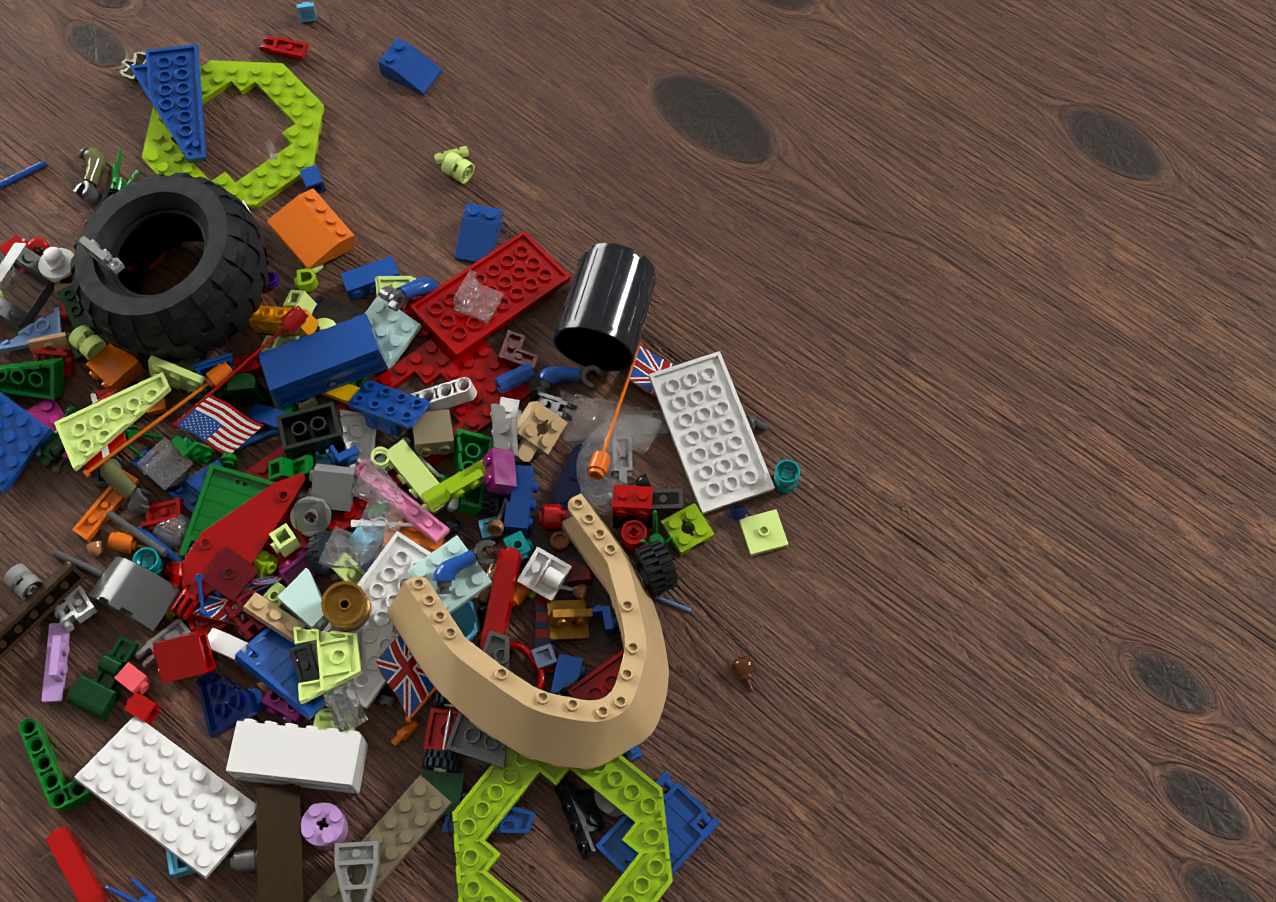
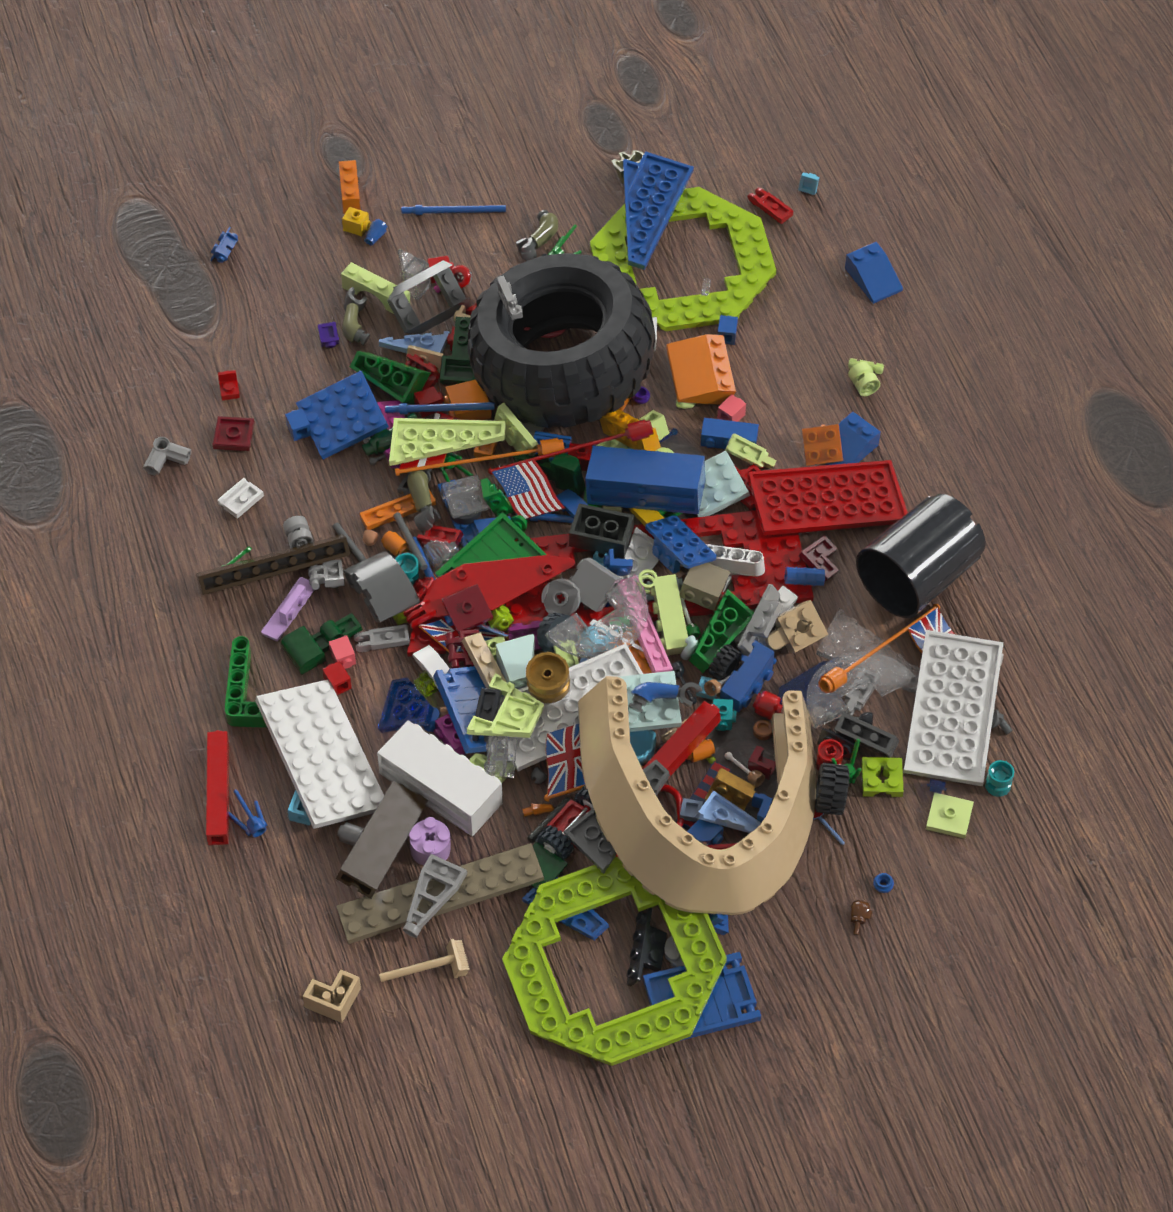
camera: 30 degrees right, 10 degrees down
(55, 263) = (465, 293): white plate -> none
(59, 404) = (404, 408): none -> blue bar
(76, 385) = (428, 396): none -> red brick
(86, 341) = (456, 368): yellowish green wheel -> none
(184, 656) = (393, 653): red brick -> none
(199, 577) = (441, 597): blue hinge -> none
(230, 668) = (425, 684): none -> clear neon green tile
(284, 468) = (562, 548): green brick -> none
(284, 540) = (527, 606): yellowish green brick -> none
(306, 280) = (671, 409): lime plate -> none
(359, 253) = (732, 409): none -> coral brick
(417, 287) = (765, 460): piece -> none
(420, 737) = (532, 837): none -> pearl dark grey bar
(455, 486) = (702, 633): lime bracket -> none
(457, 245) = (822, 444): none -> orange plate
(476, 298) = (809, 493): clear bracket -> none
(500, 471) = (742, 639): magenta brick -> none
(544, 574) = (731, 744): white plate -> none
(553, 375) = (842, 593): piece -> none
(554, 404) = (827, 615): black hinge -> none
(572, 644) = (723, 812): none -> light blue wing
(632, 500) = (844, 723): red bracket -> none
(746, 623) = (883, 878): none -> blue plate

